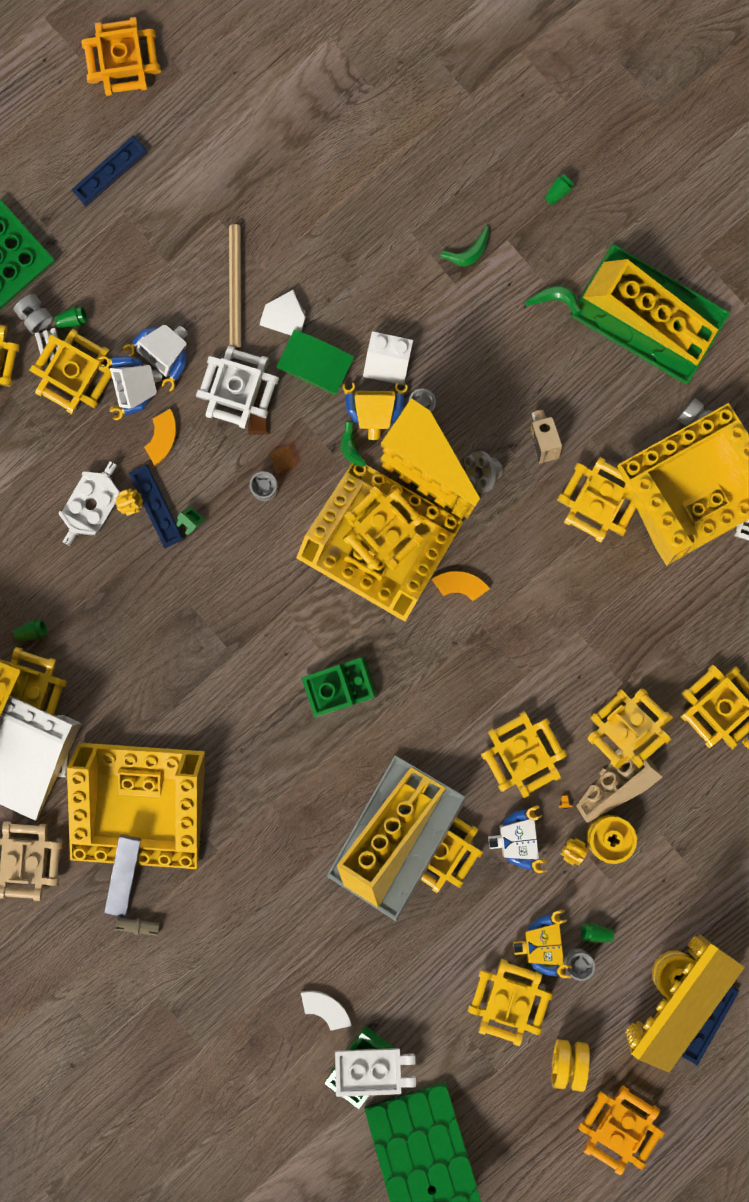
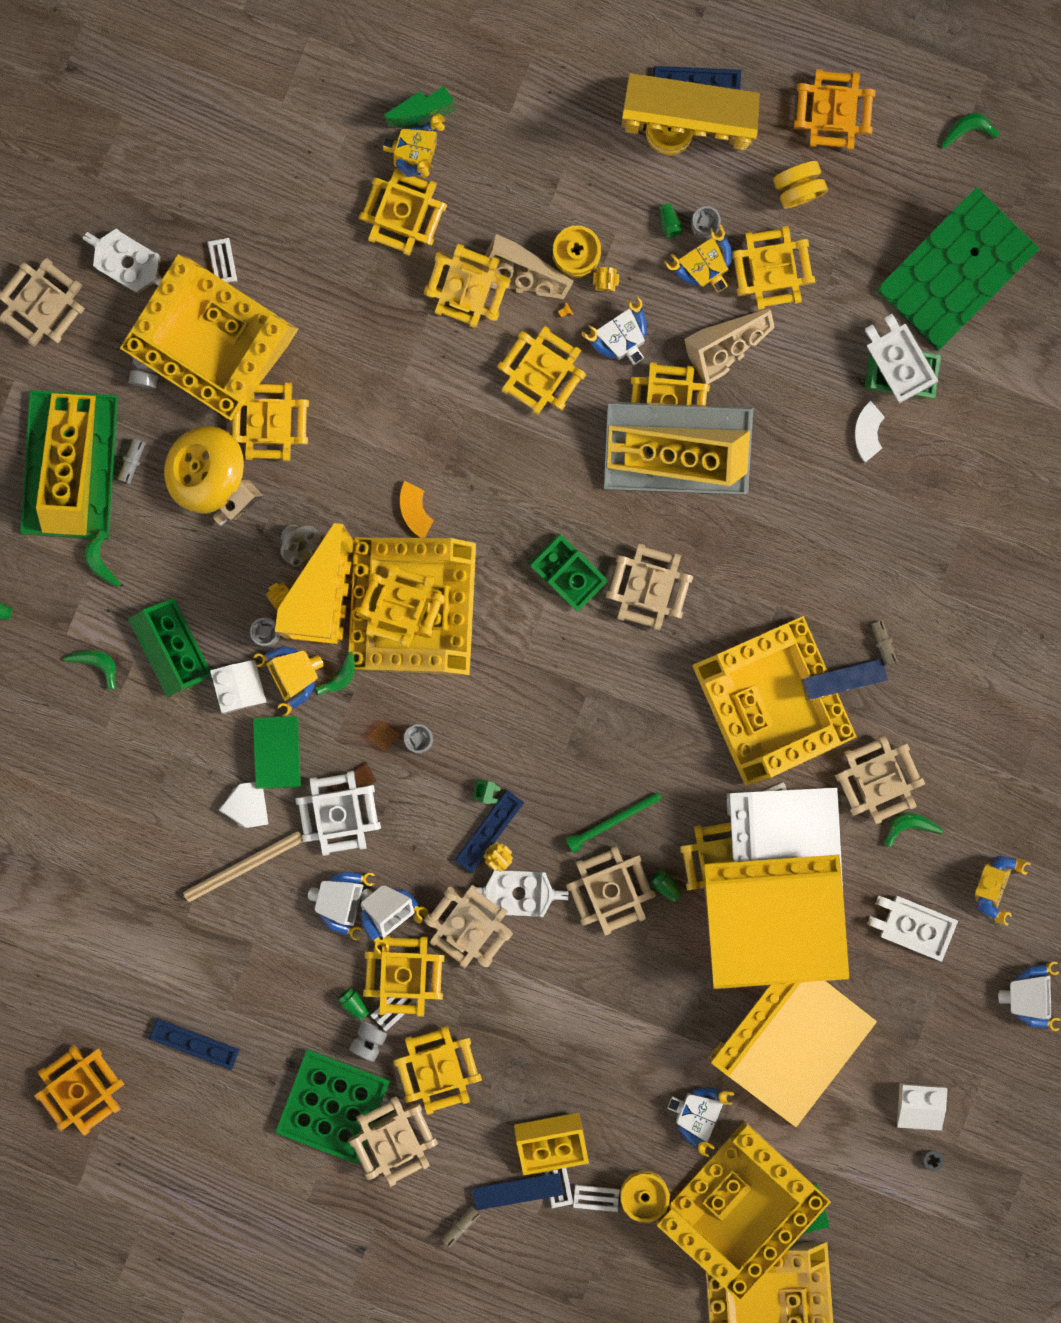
camera: 120 degrees left, 0 degrees up
(50, 582) = (611, 890): none -> tan brick
(83, 446) = (468, 926): none -> tan brick
(108, 573) = (575, 842): none -> green piece
(163, 437) = (420, 858): light orange tile -> none
(290, 749) = (649, 587): none -> tan brick
(449, 430) = (277, 594): none -> yellow gear
(450, 319) = (170, 647): none -> green slope
(466, 922) = (720, 345): none -> tan wedge
(577, 412) = (202, 483): none -> yellow brick
(626, 367) = (131, 461): none -> light grey pin

